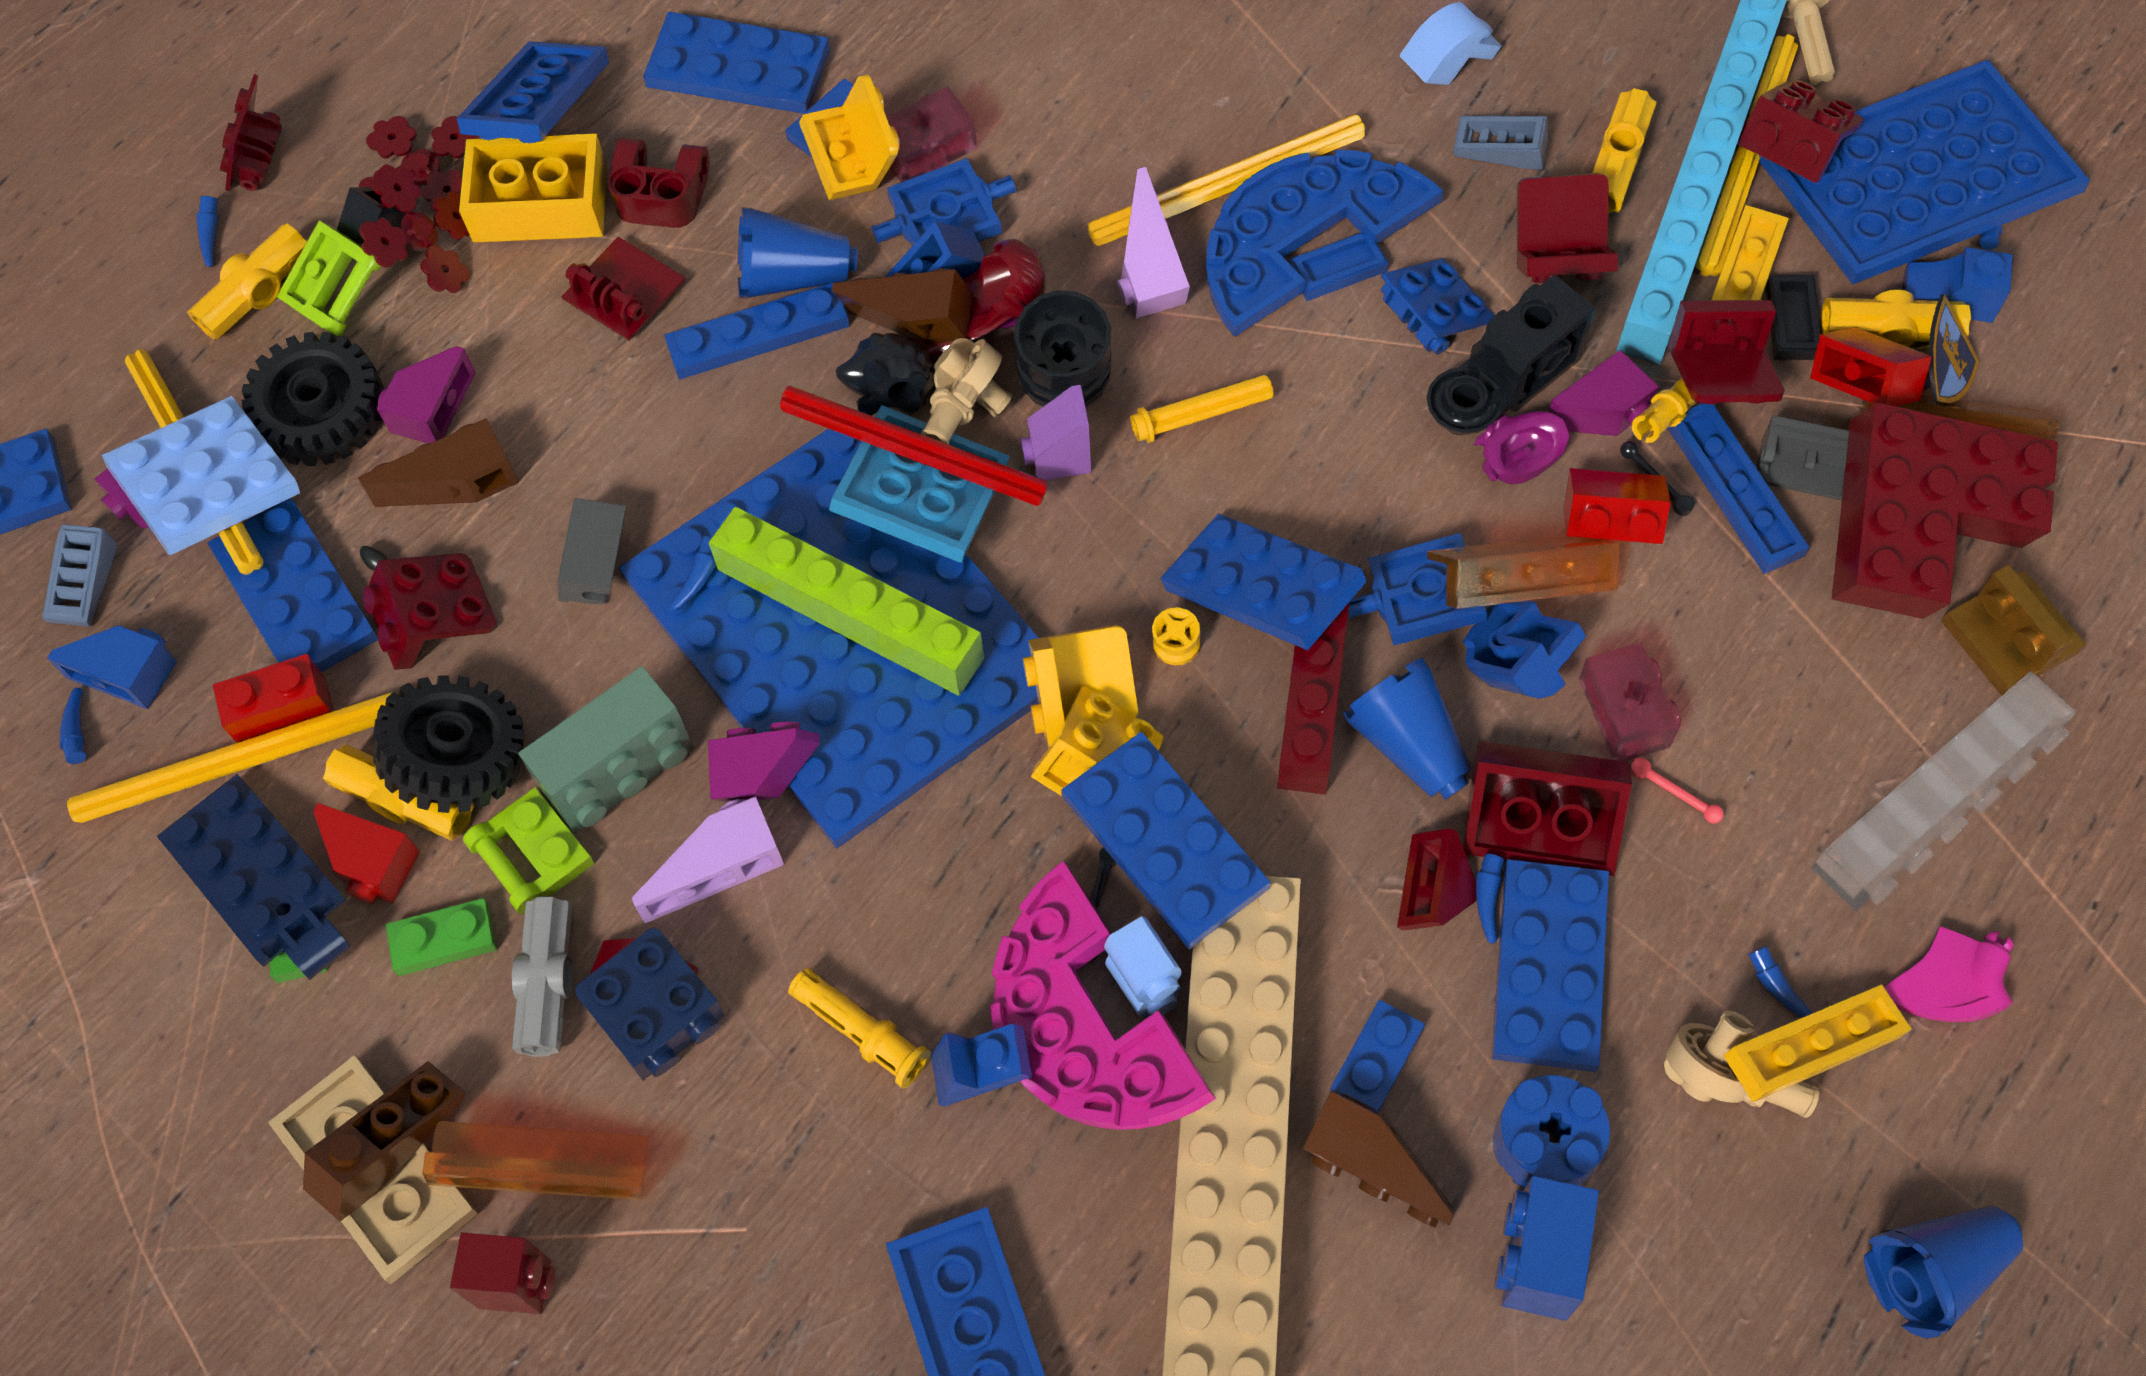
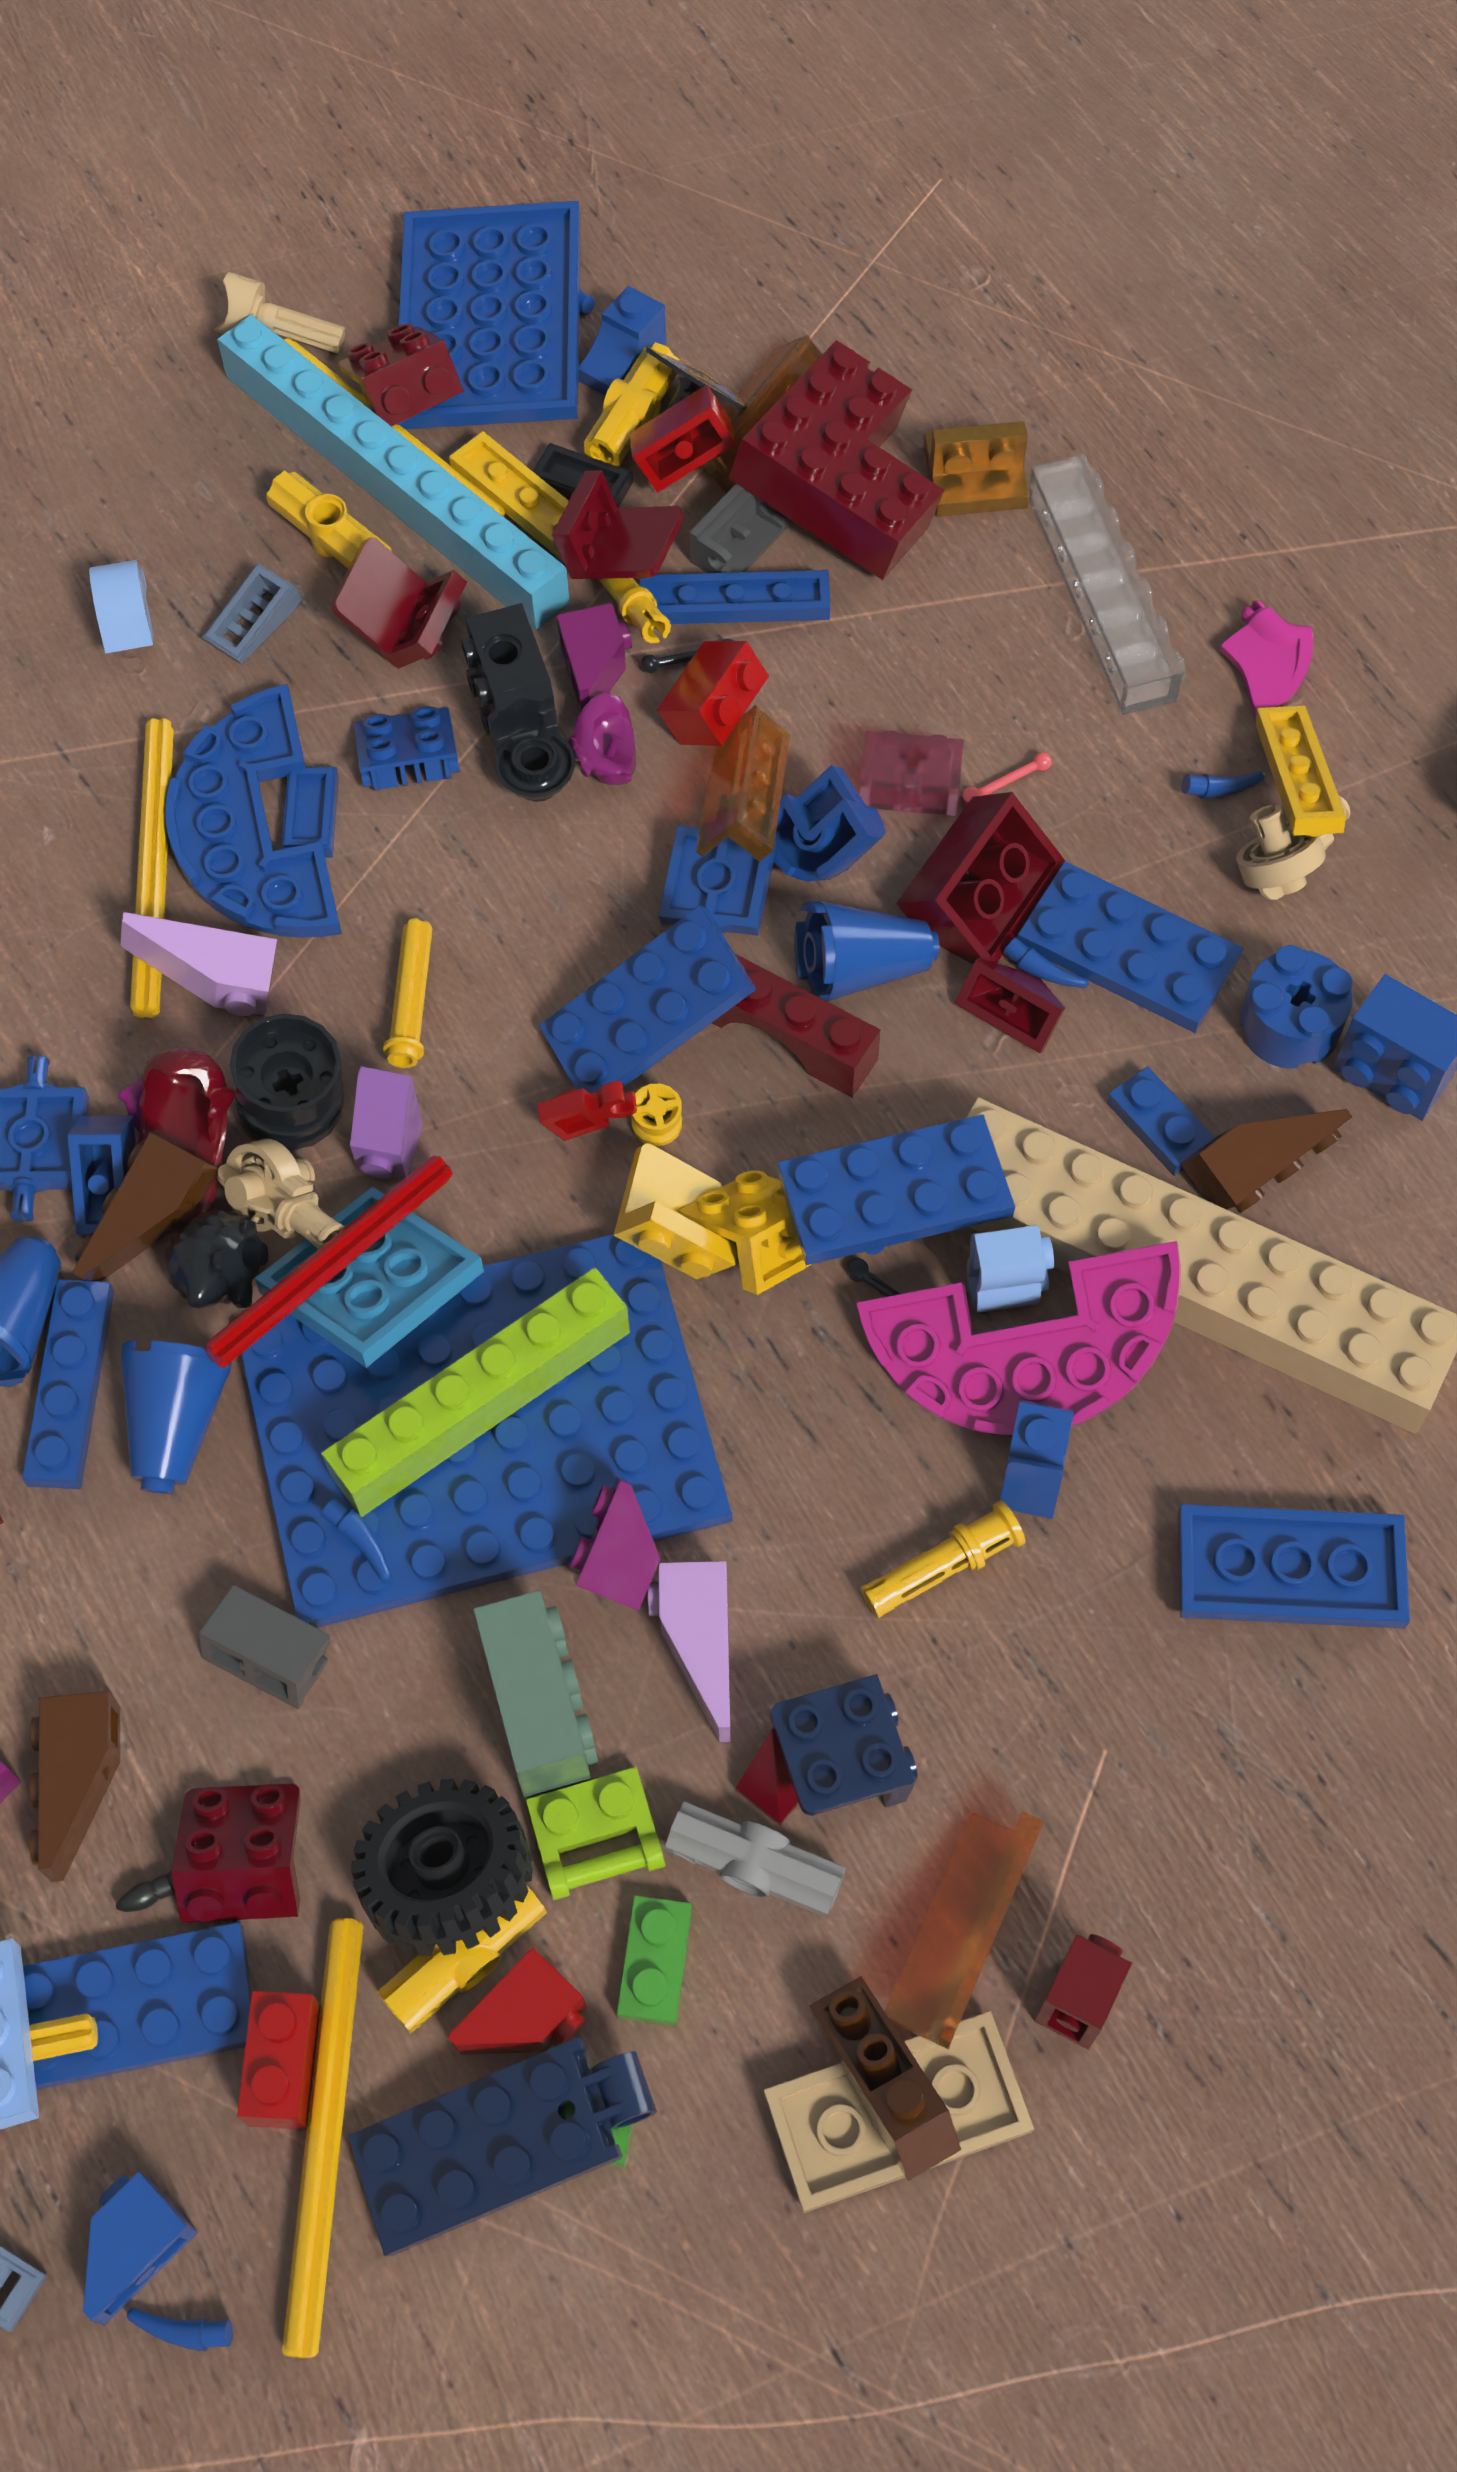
camera: 70 degrees left, 0 degrees up
(746, 398) = (168, 1410): none -> blue cone
(1146, 575) = (579, 1112): none -> red plate

